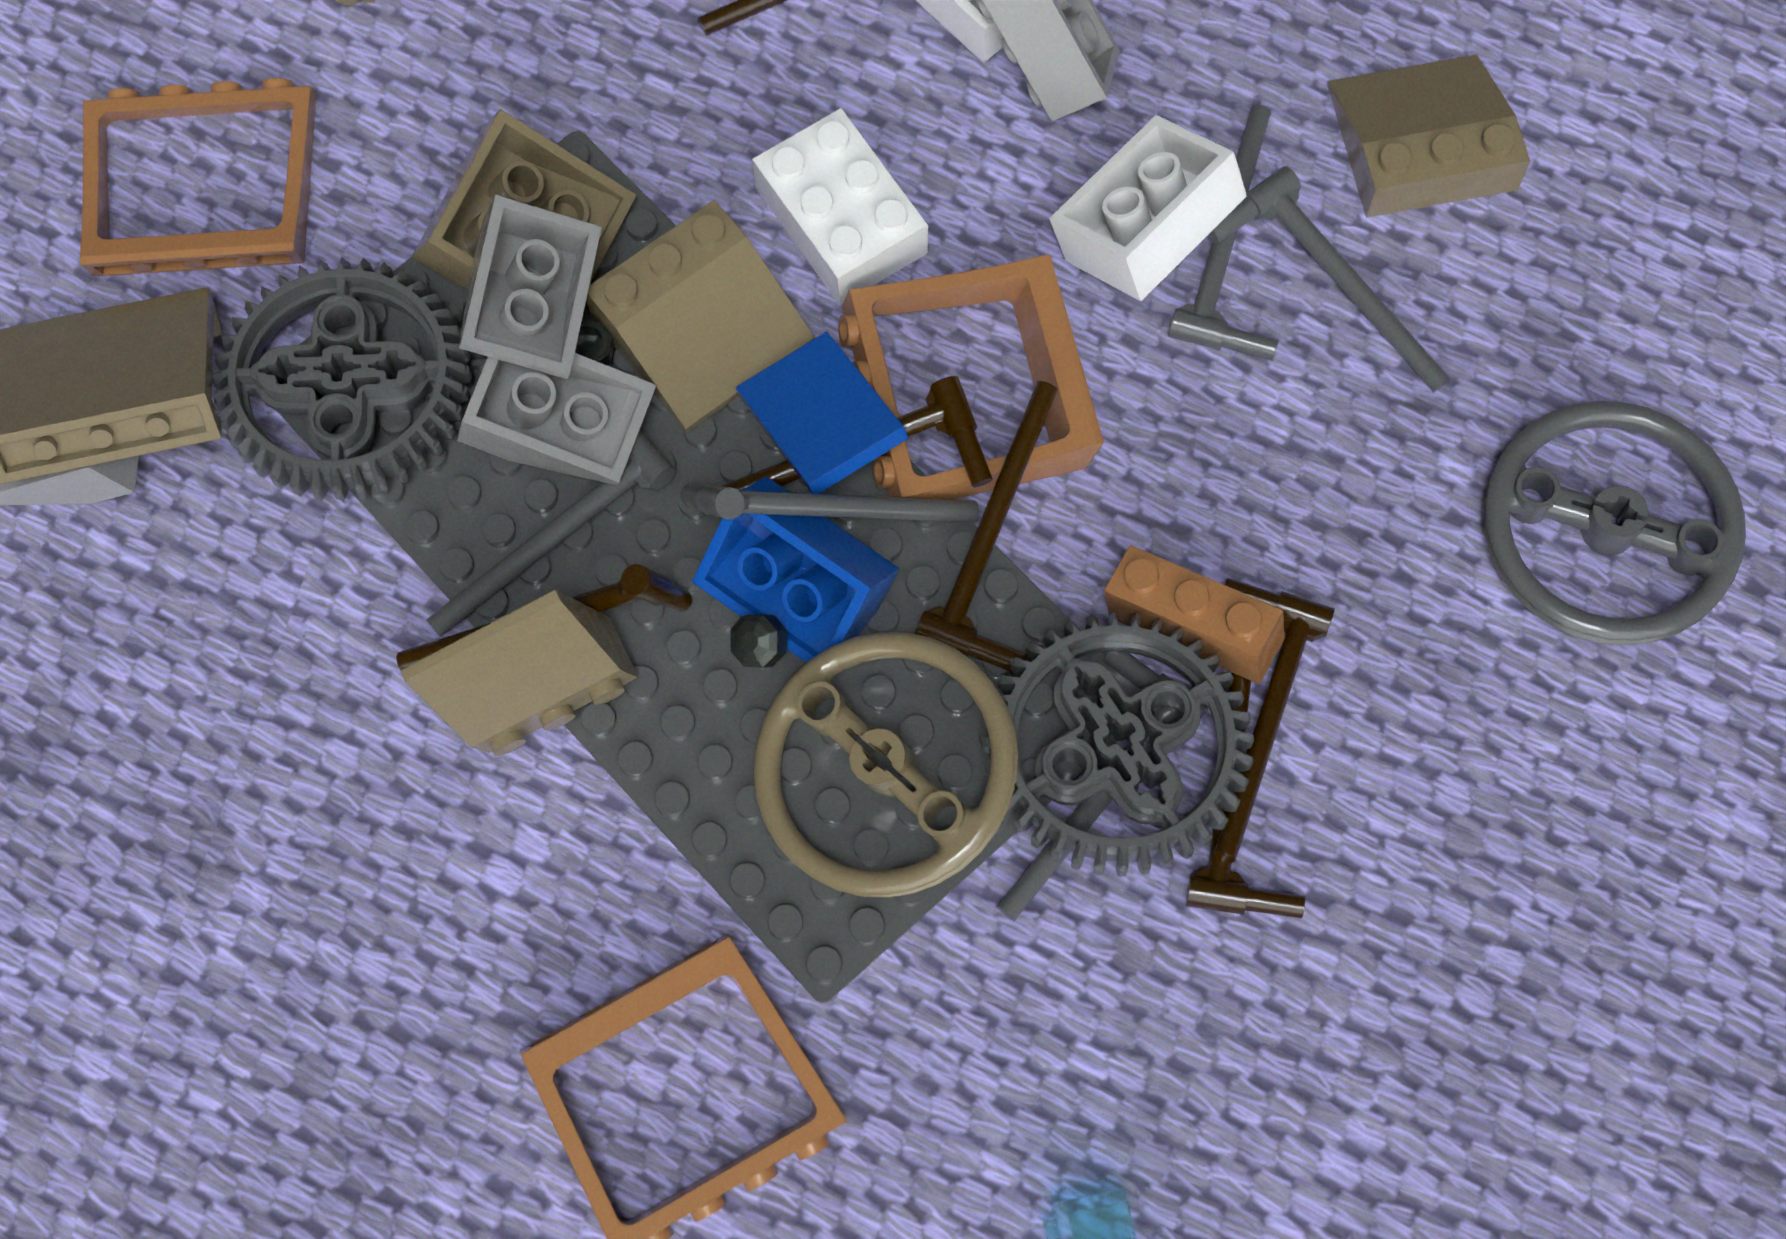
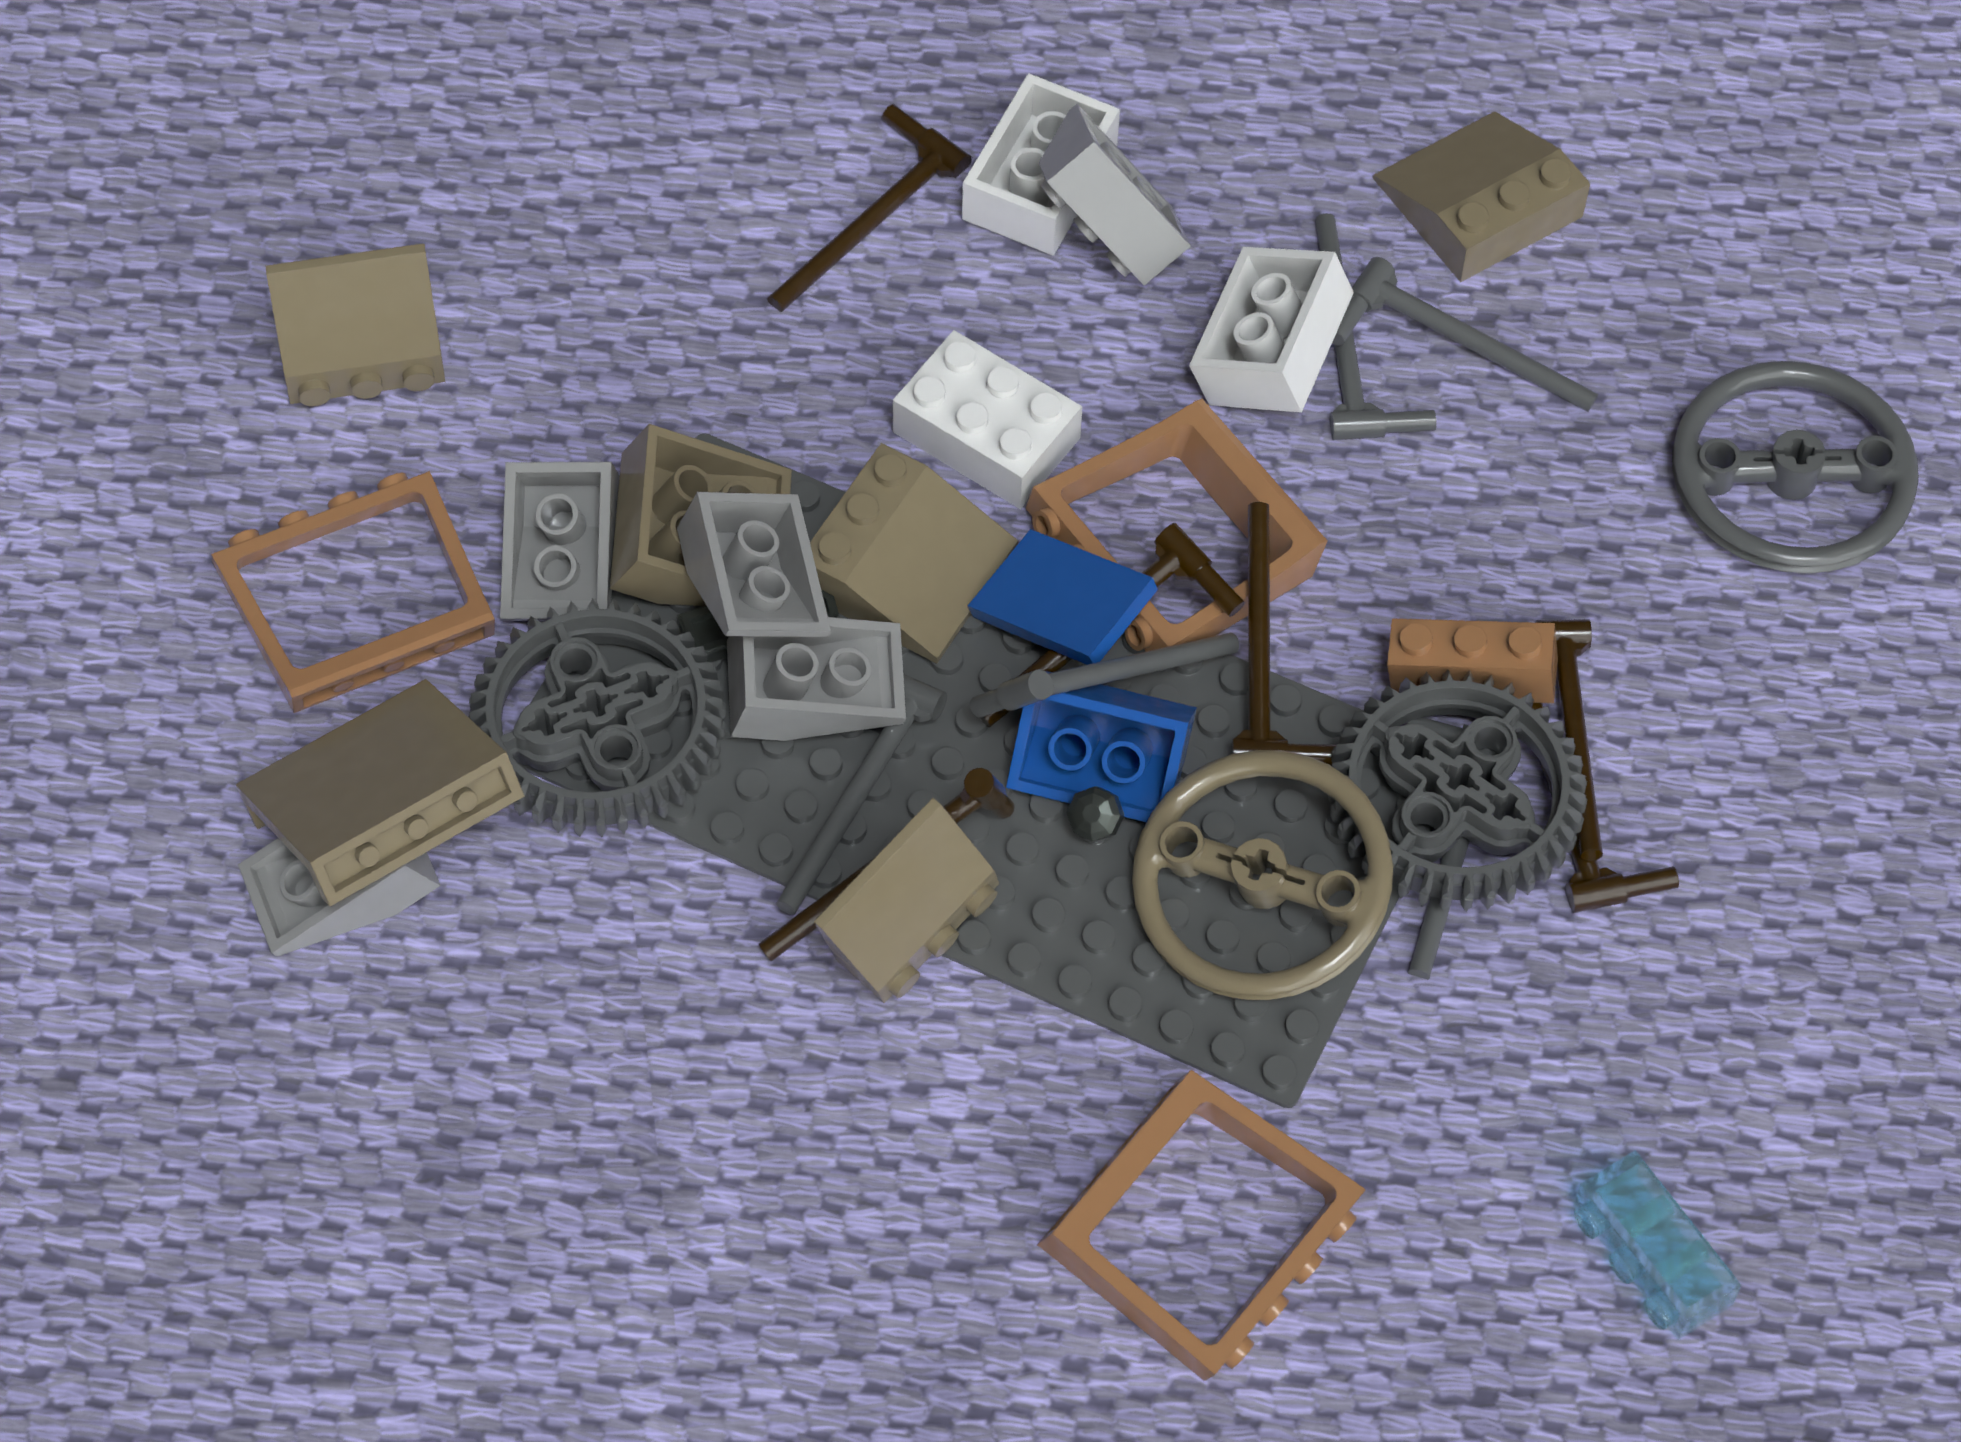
camera: 25 degrees left, 10 degrees down
(387, 190) = (557, 537): none -> light grey slope

